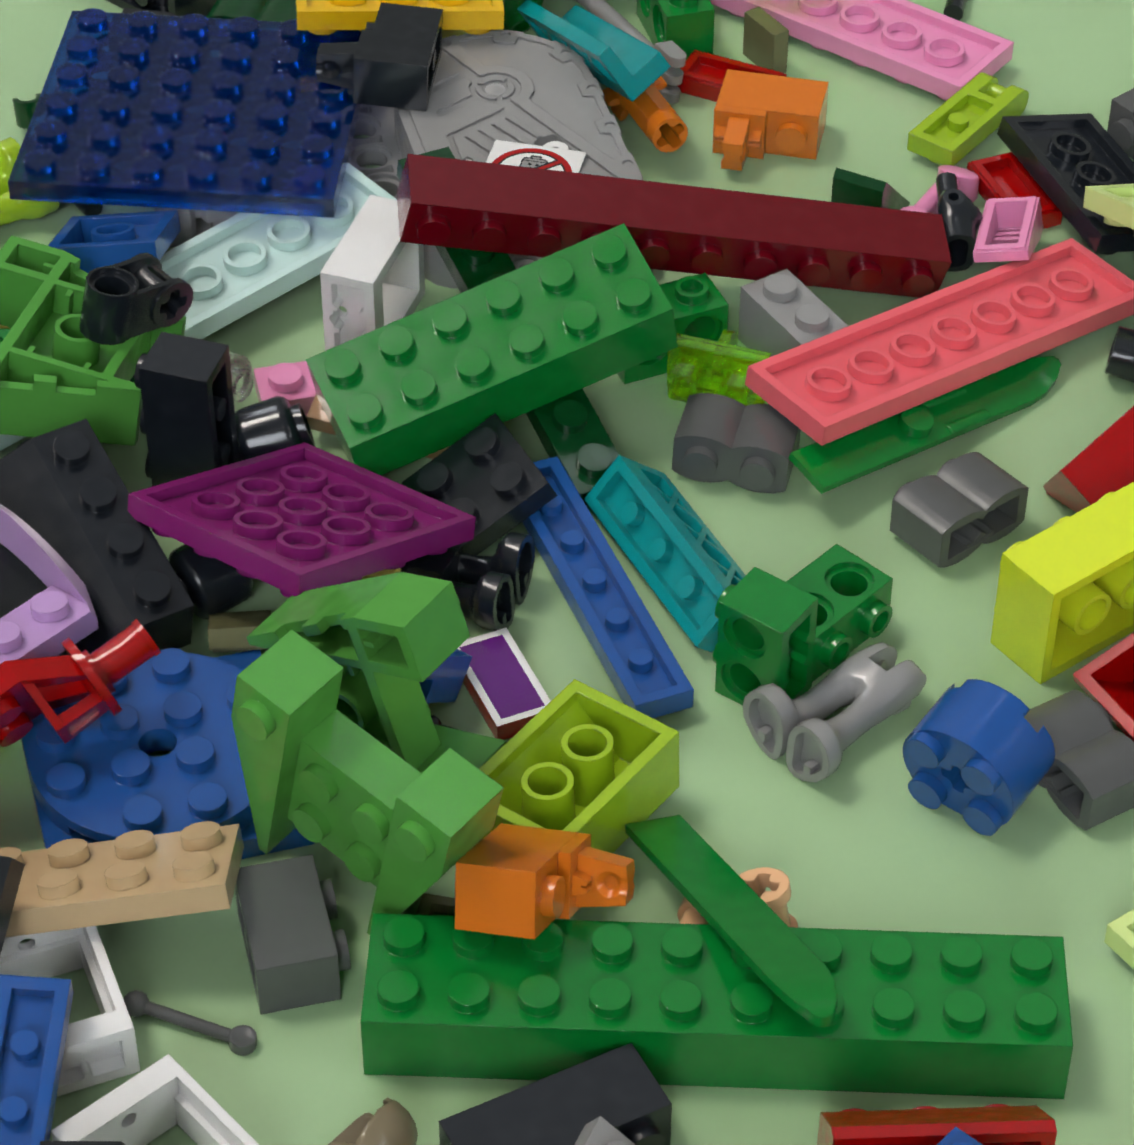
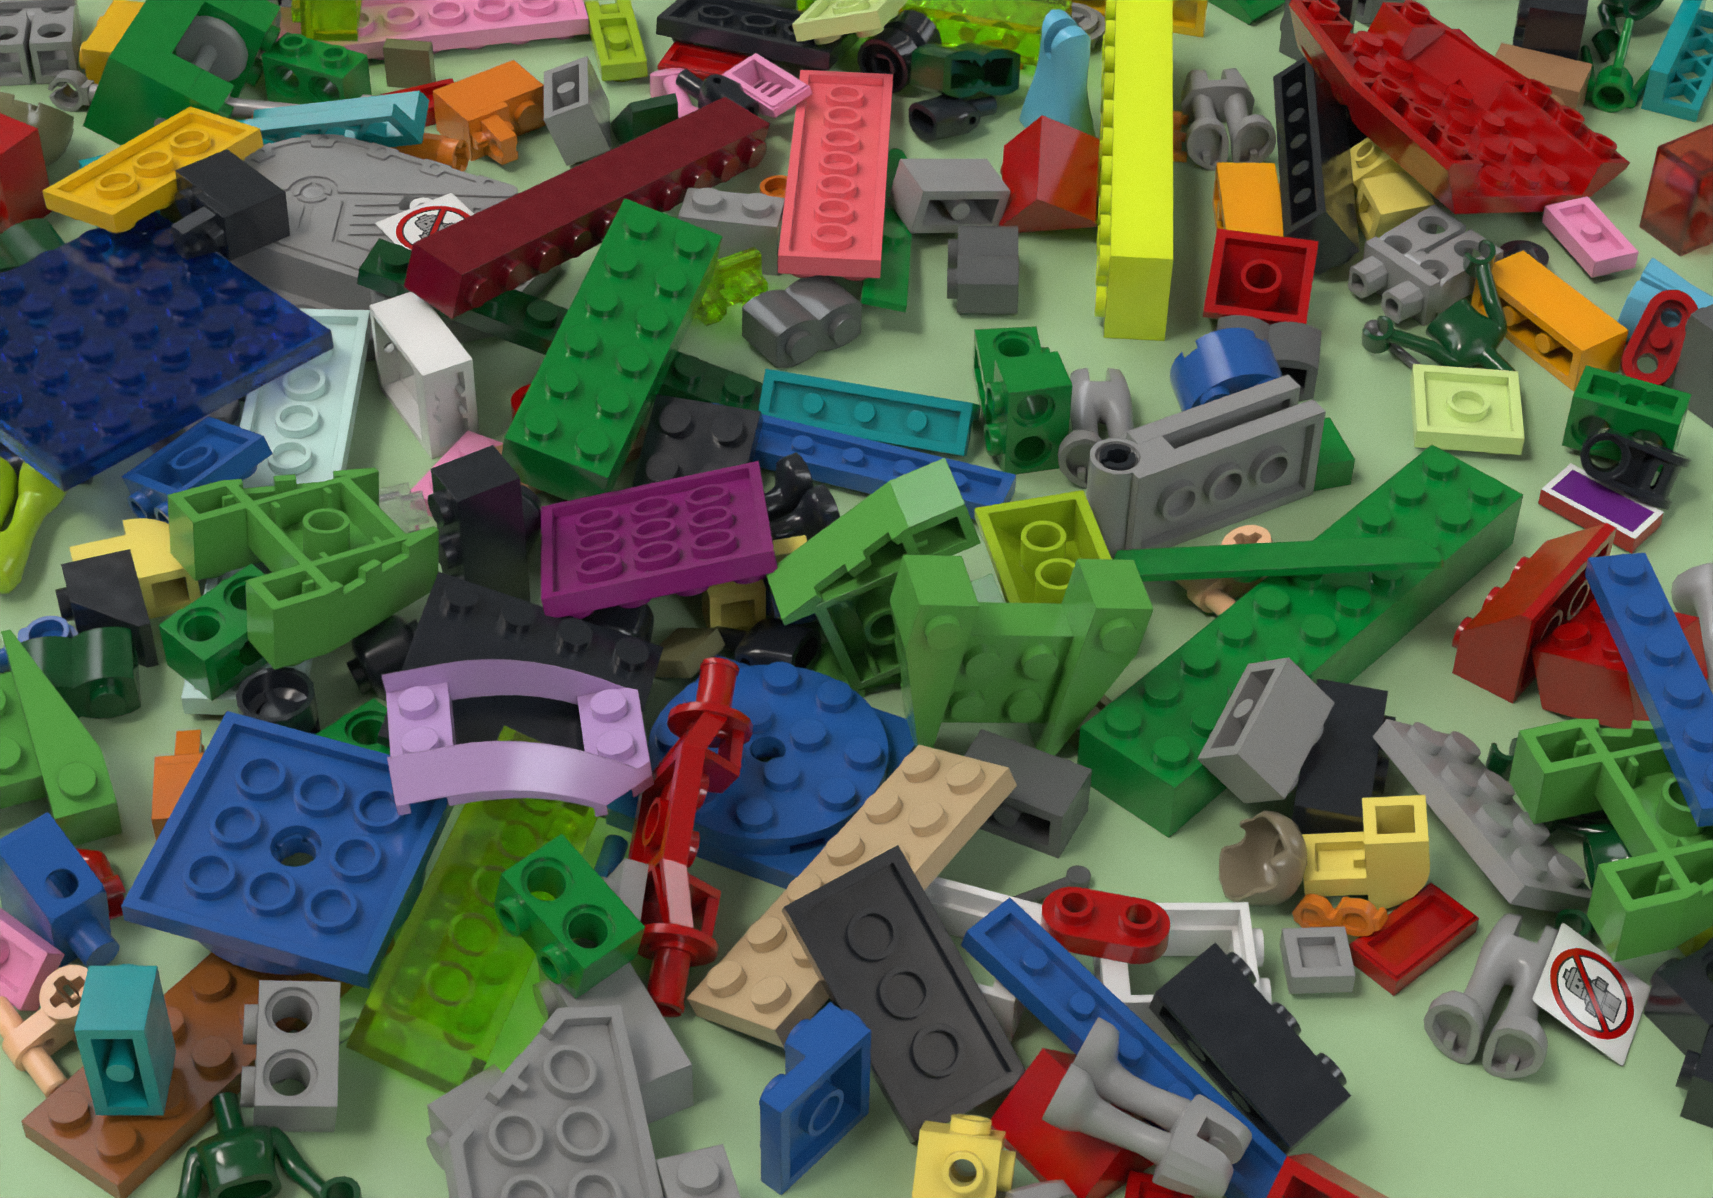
camera: 50 degrees left, 0 degrees up
(129, 1067) = (1106, 925): none -> red plate
(131, 300) = (346, 475): black piece -> none
(488, 1041) = (1266, 731): none -> light grey brick
(532, 875) = (1178, 628): orange hinge -> none
(806, 154) = (577, 111): none -> light grey brick
(831, 799) = (1205, 467): none -> light grey hinge
(1000, 889) = (1334, 461): none -> green piece
(1016, 422) = (947, 194): none -> light grey brick

